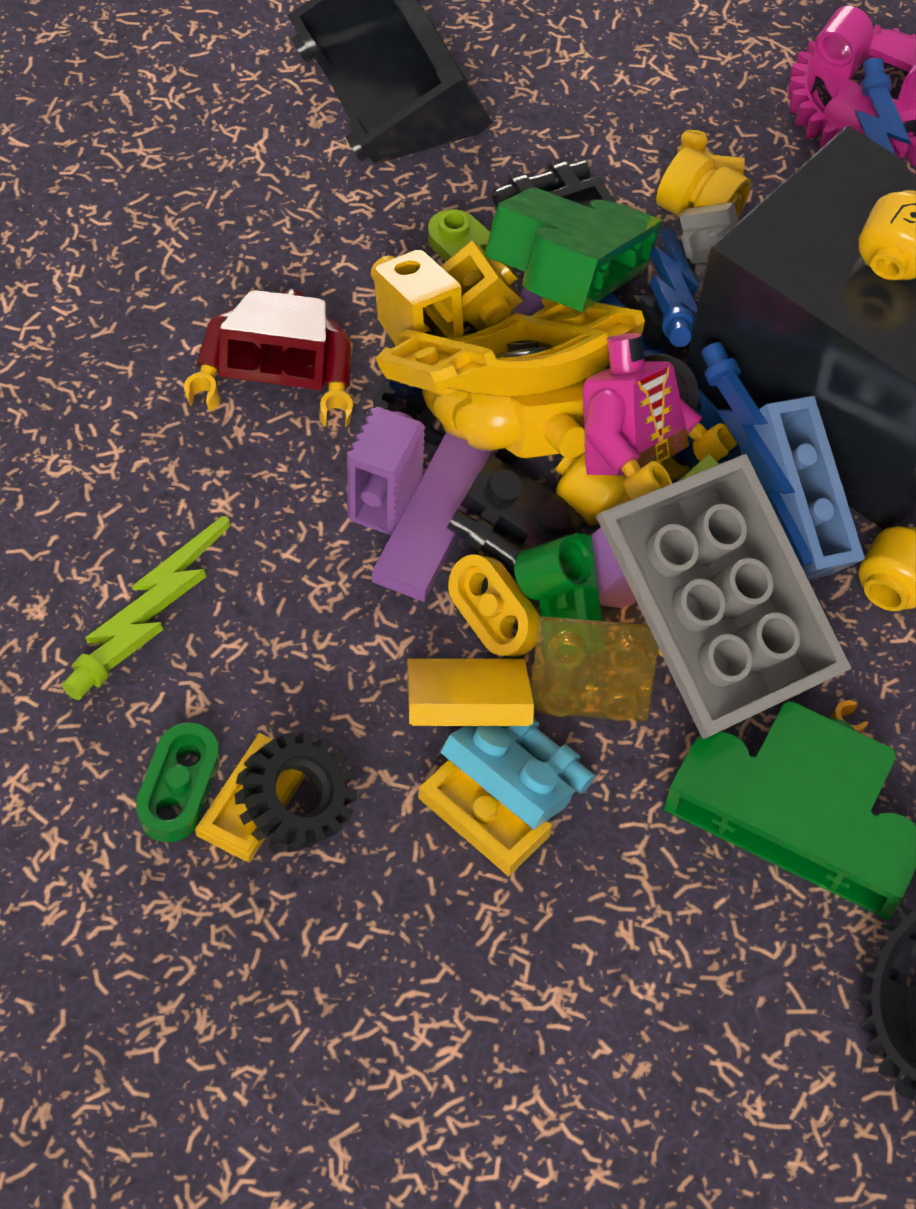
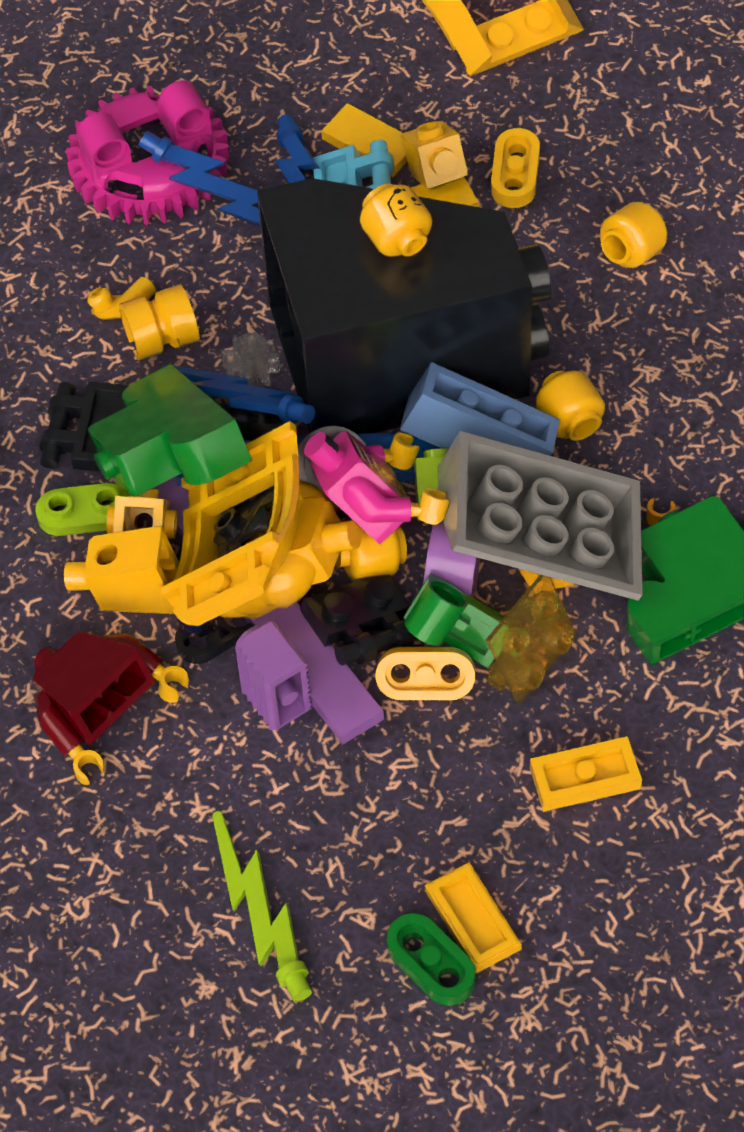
camera: 50 degrees left, 0 degrees up
(320, 767) = (487, 899): black tyre -> none
(469, 692) = (491, 727): yellow tile -> none
(512, 775) = (566, 729): medium azure plate -> none
(704, 227) = (203, 340): light grey tile -> none
(740, 420) = (410, 419): blue piece -> none

